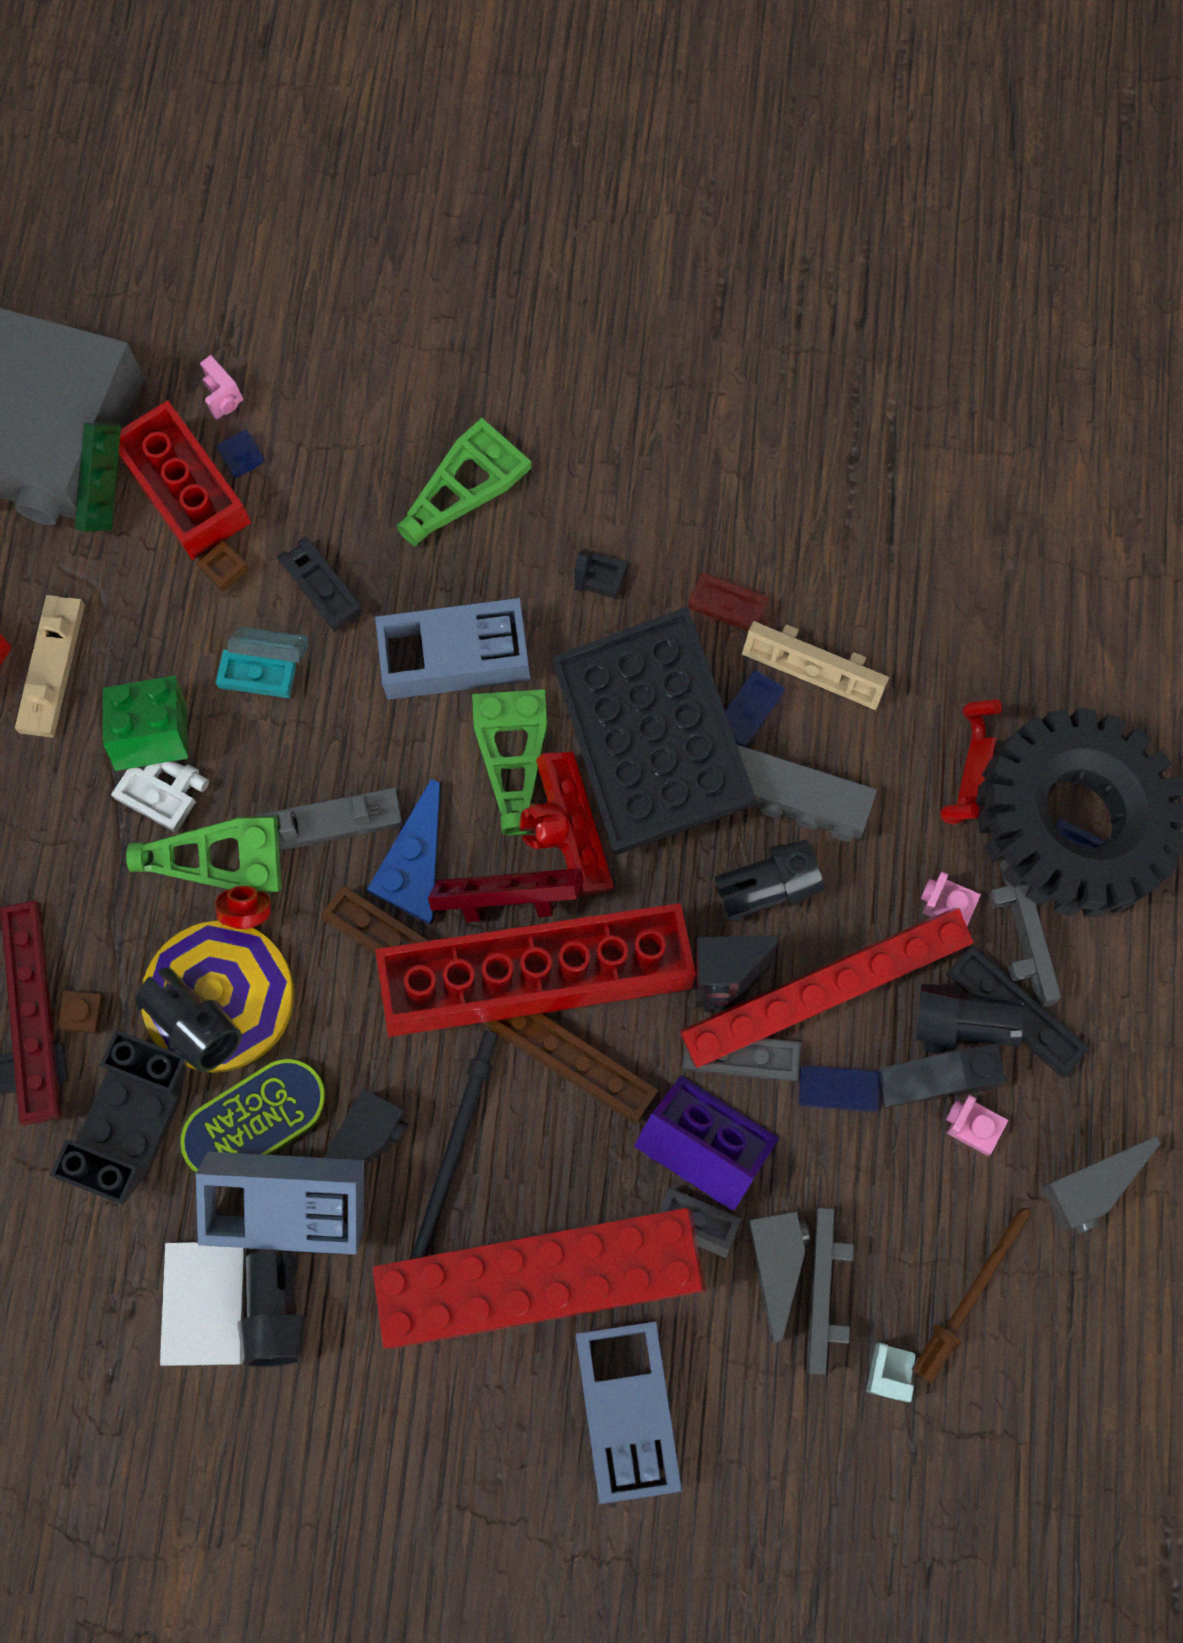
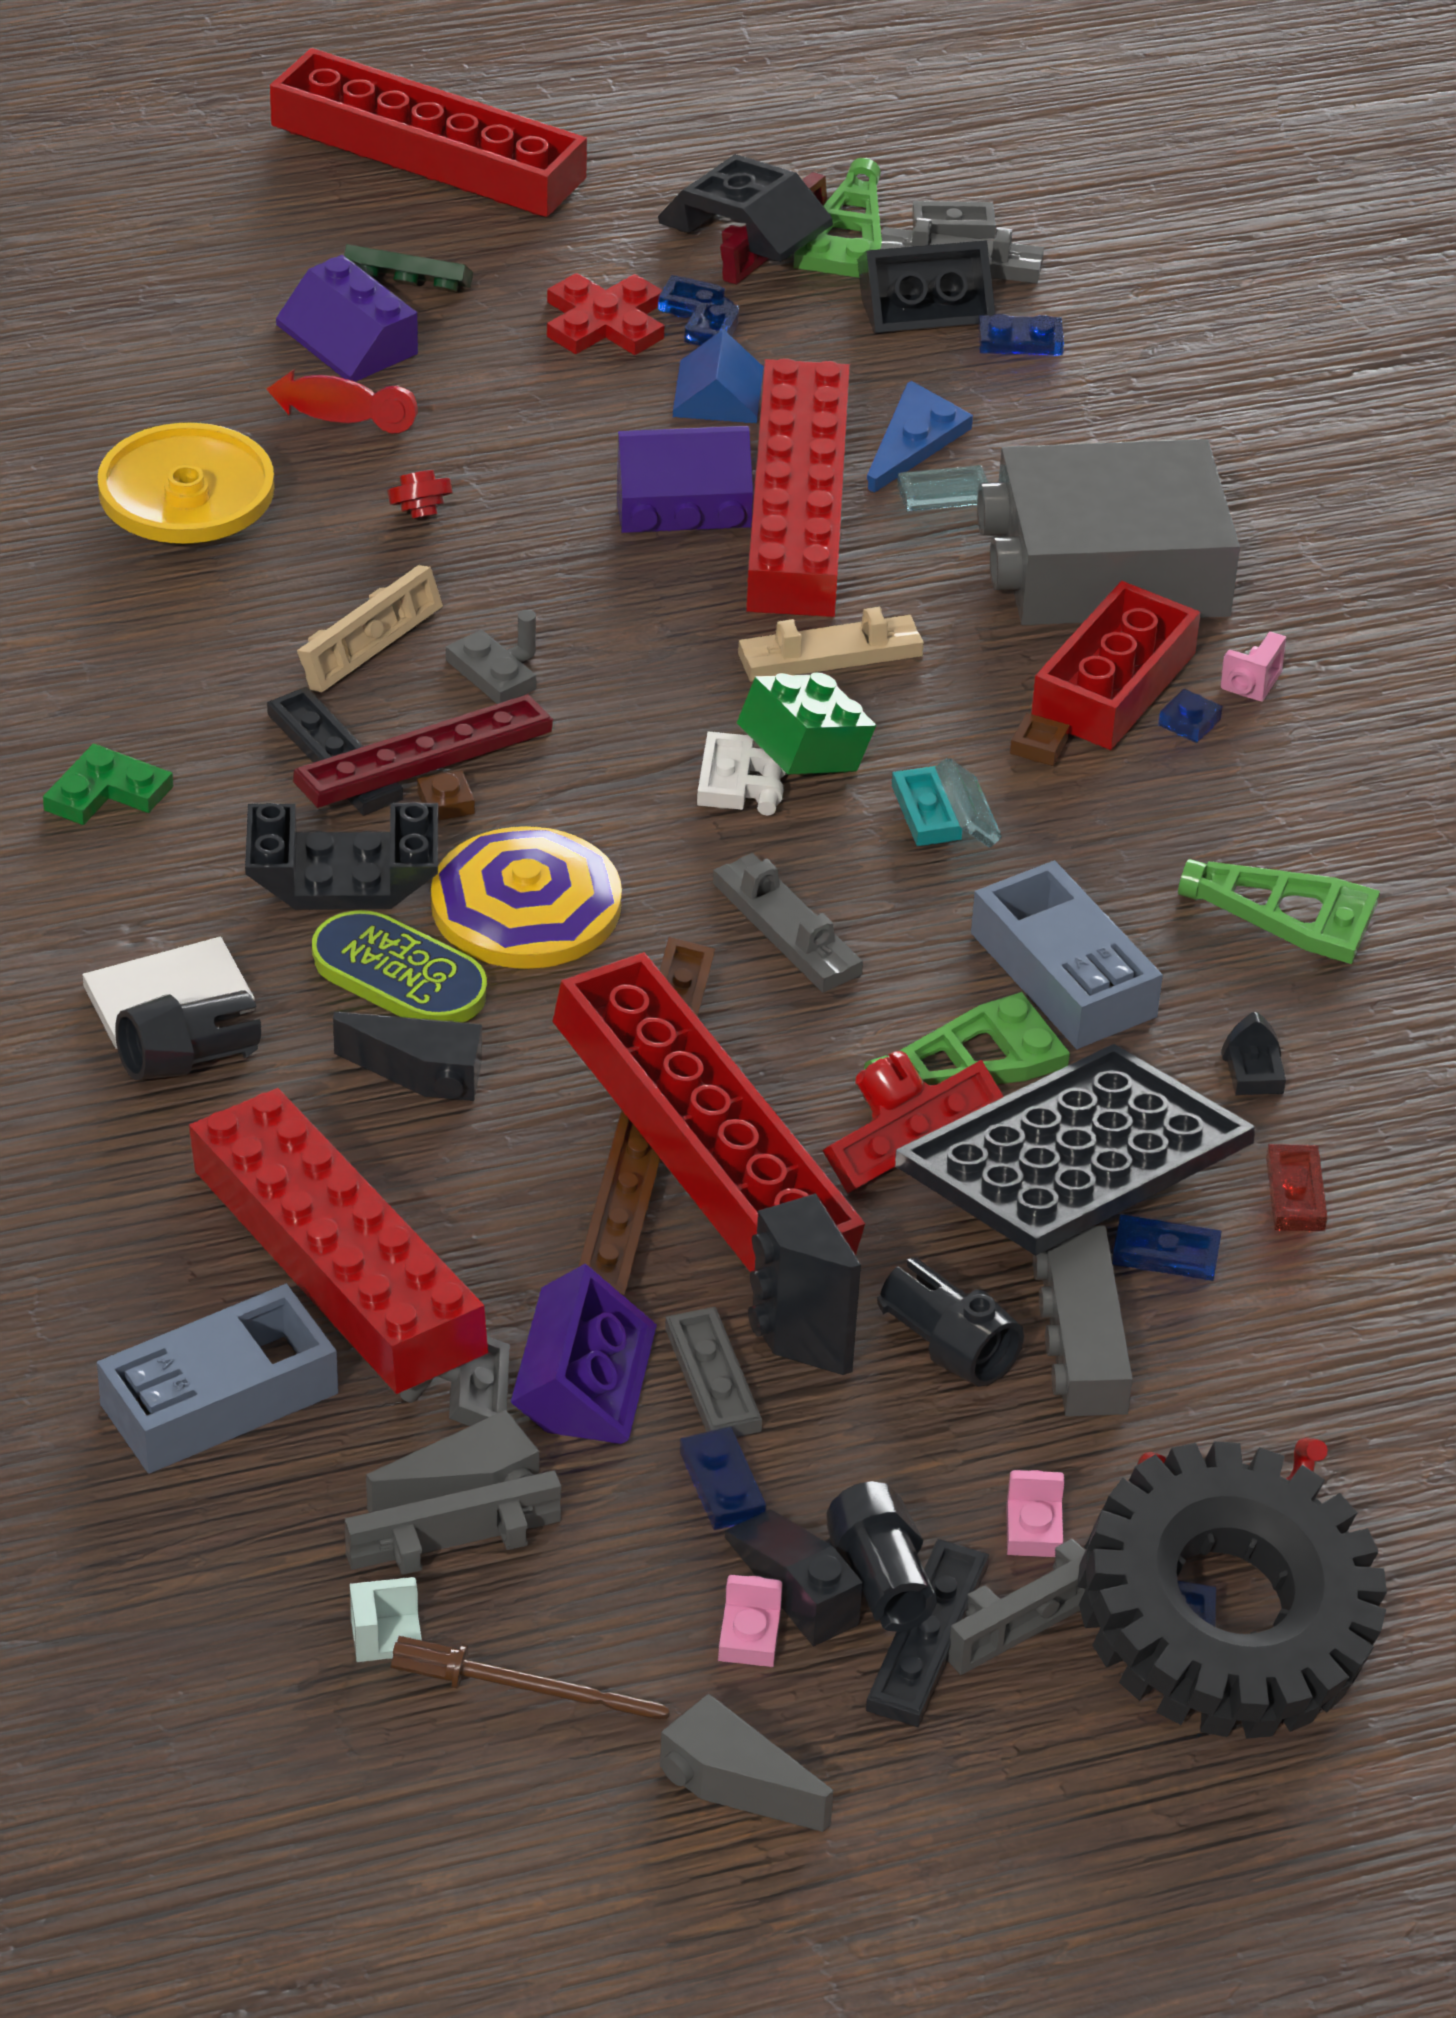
camera: 60 degrees right, 30 degrees down
(97, 476) = (1069, 589): dark green plate -> none
(196, 1028) = (477, 852): black piece -> none
(242, 907) = (639, 874): red plate -> none
(257, 854) = (709, 867): bright green plate -> none
(279, 1202) = (295, 968): sand blue piece -> none
(320, 584) = (1072, 823): black plate -> none
(410, 865) = (787, 1007): blue wing -> none
(476, 893) = (805, 1100): dark red hinge -> none
(478, 1071) = (559, 1137): black bar -> none
(815, 665) = (1267, 1265): tan hinge -> none
(826, 987) = (848, 1414): red plate -> none

